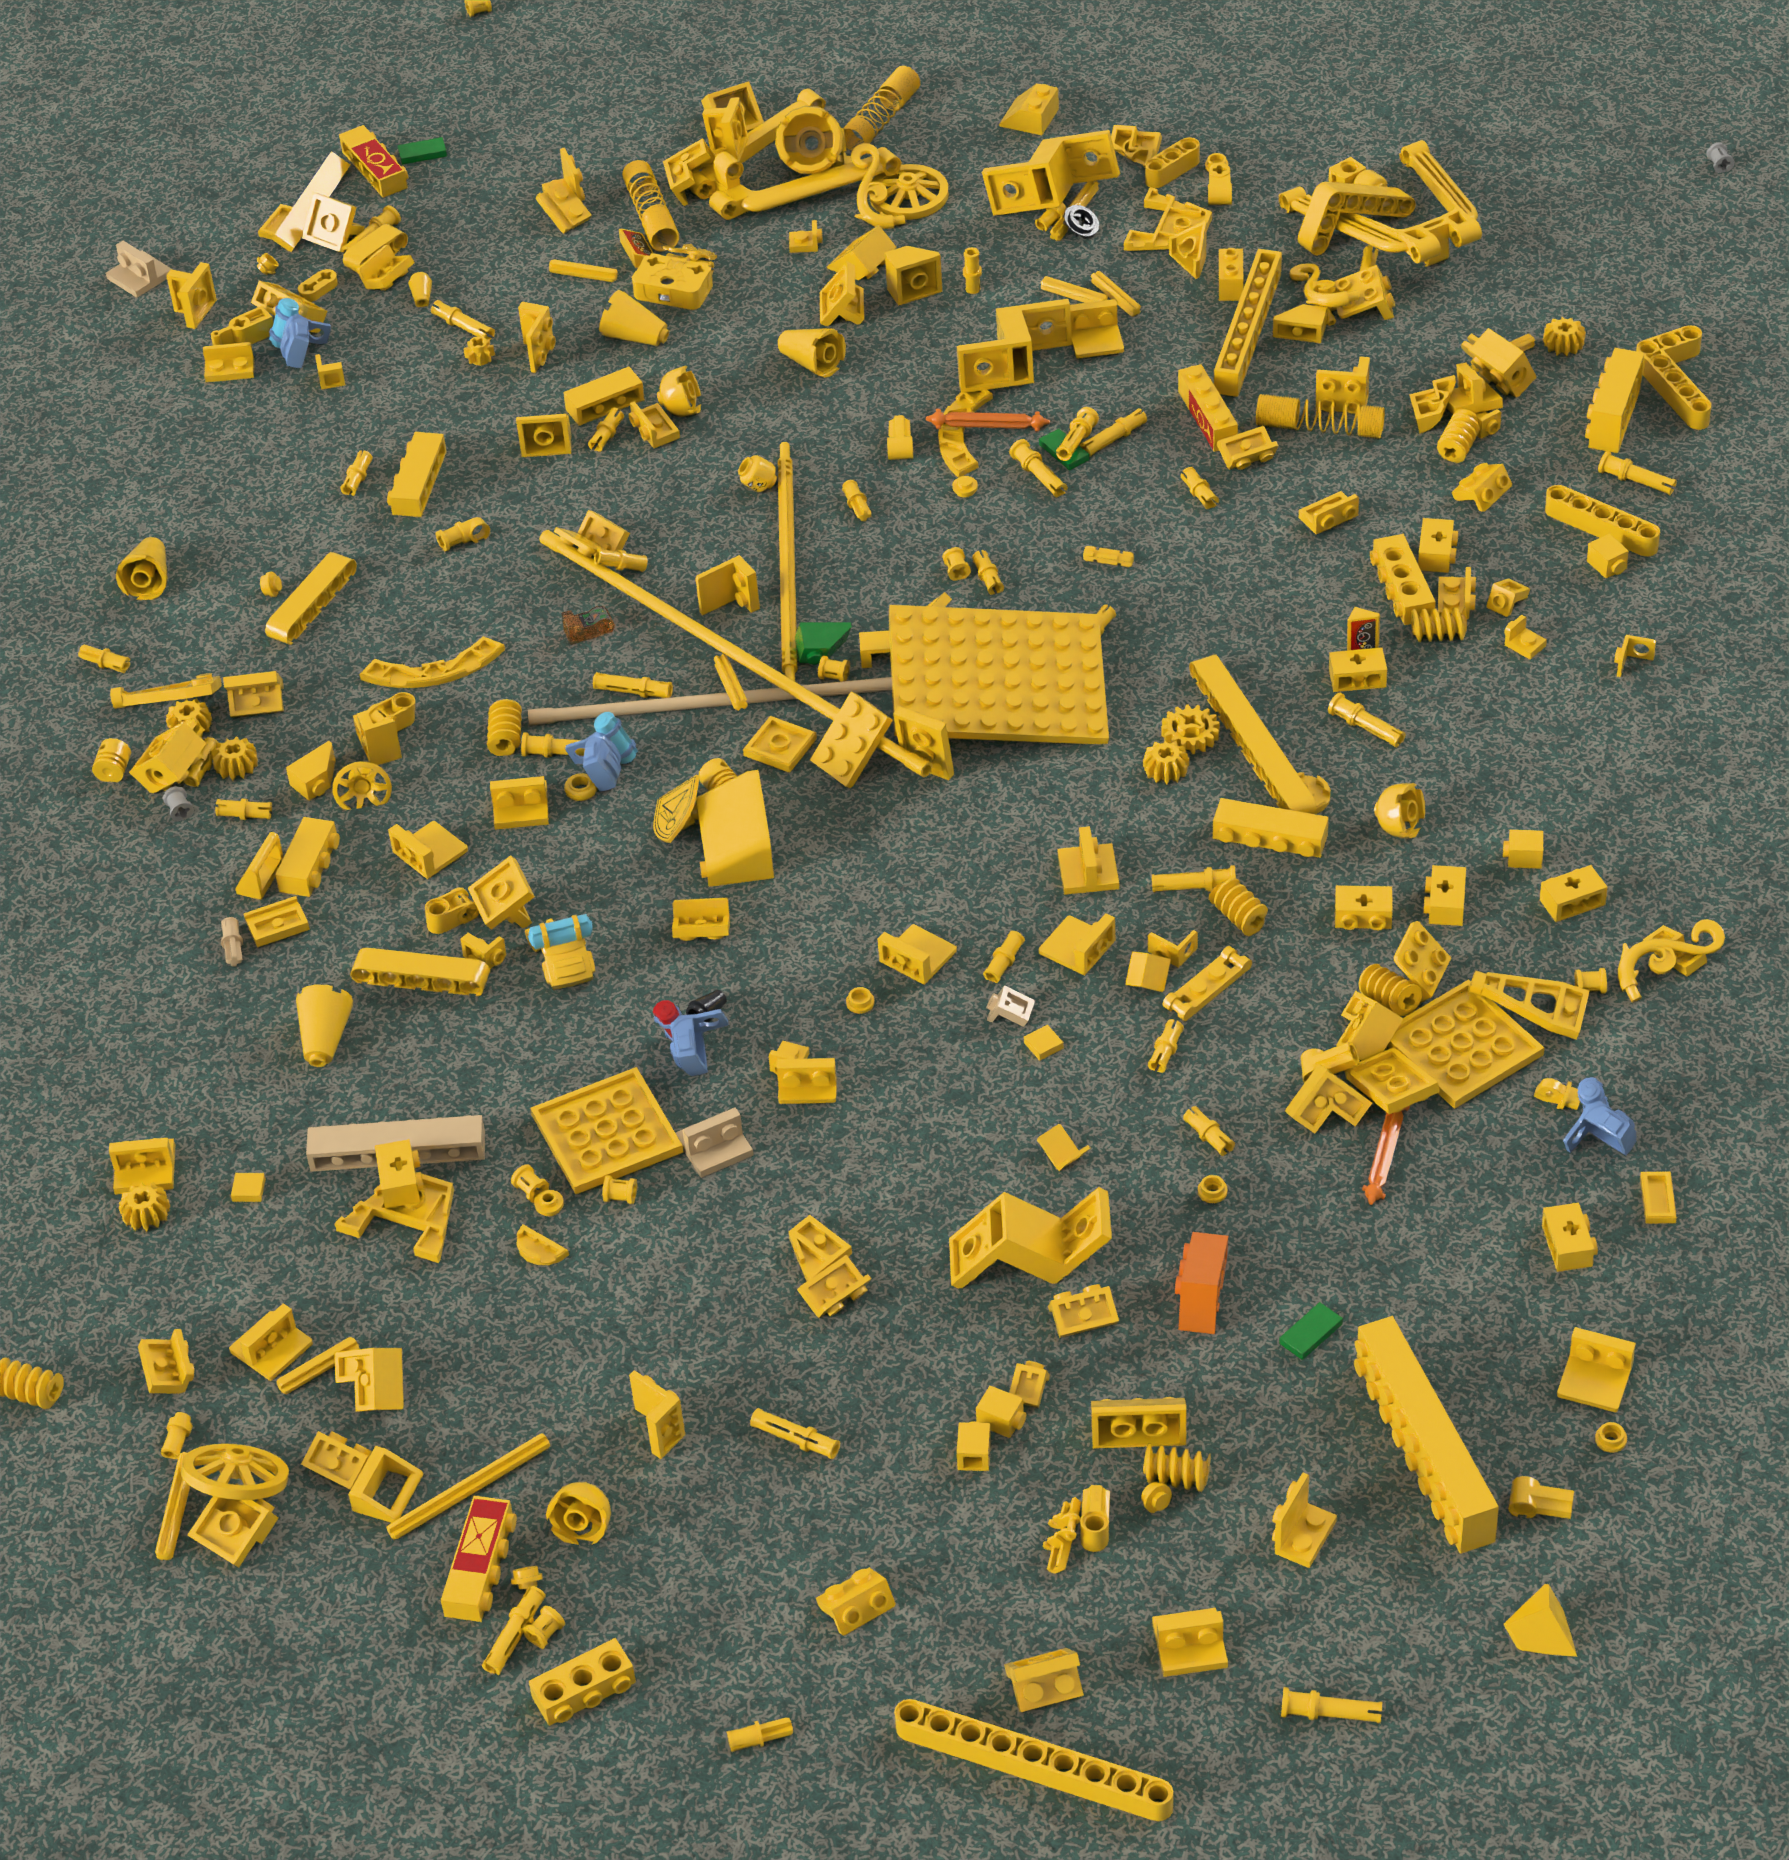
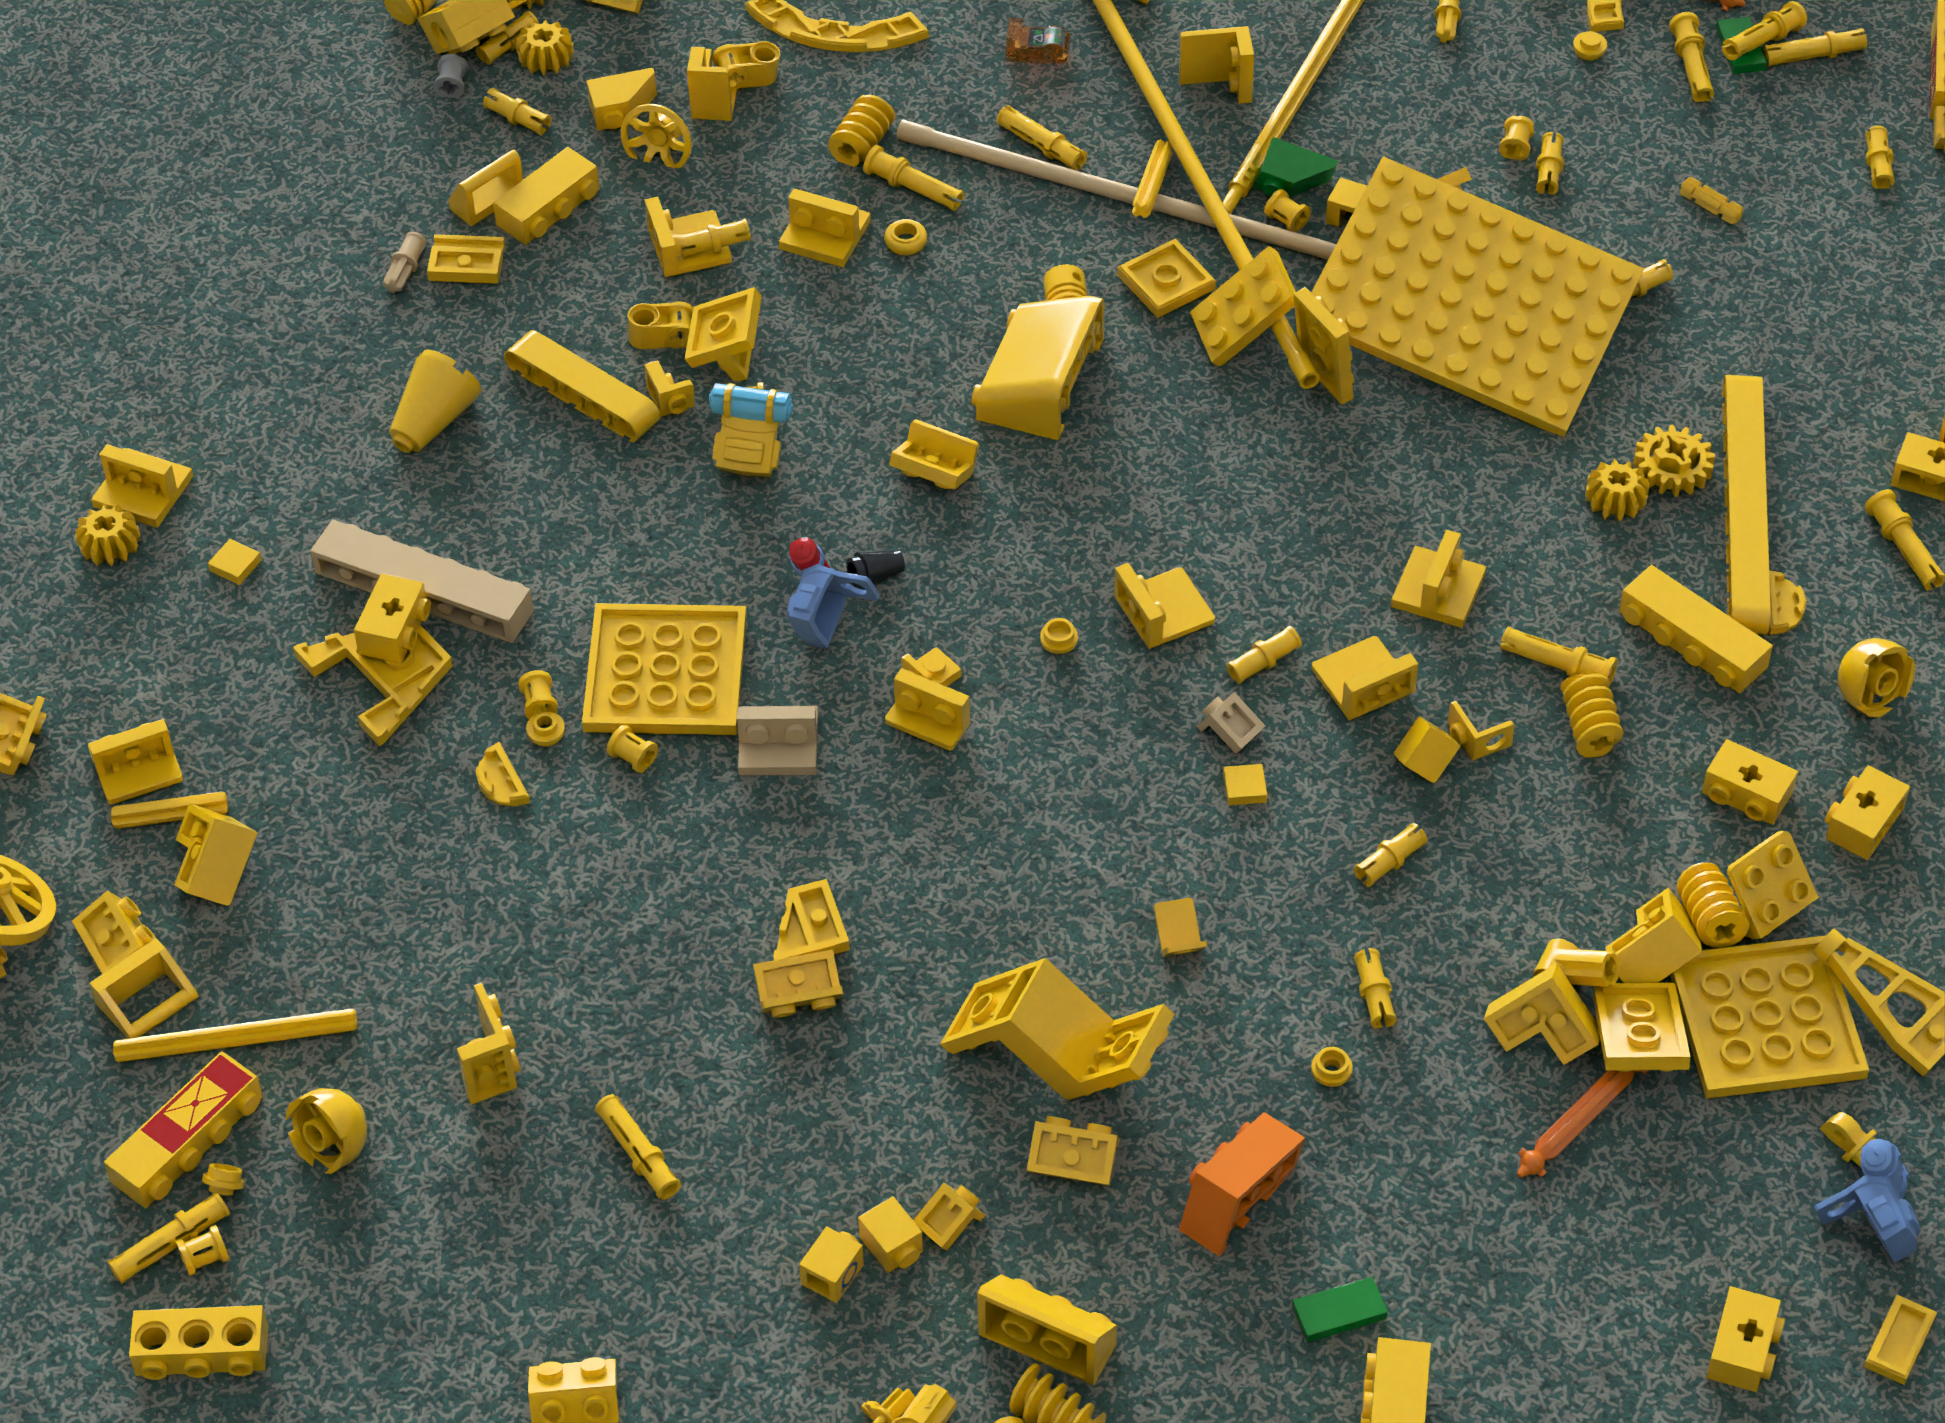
camera: 25 degrees right, 5 degrees up
(451, 836) = (714, 237): none -> yellow pin
(604, 751) = (951, 205): medium blue piece -> none
(675, 810) = (986, 312): yellow shield -> none
(1207, 984) = (1493, 797): yellow plate -> none

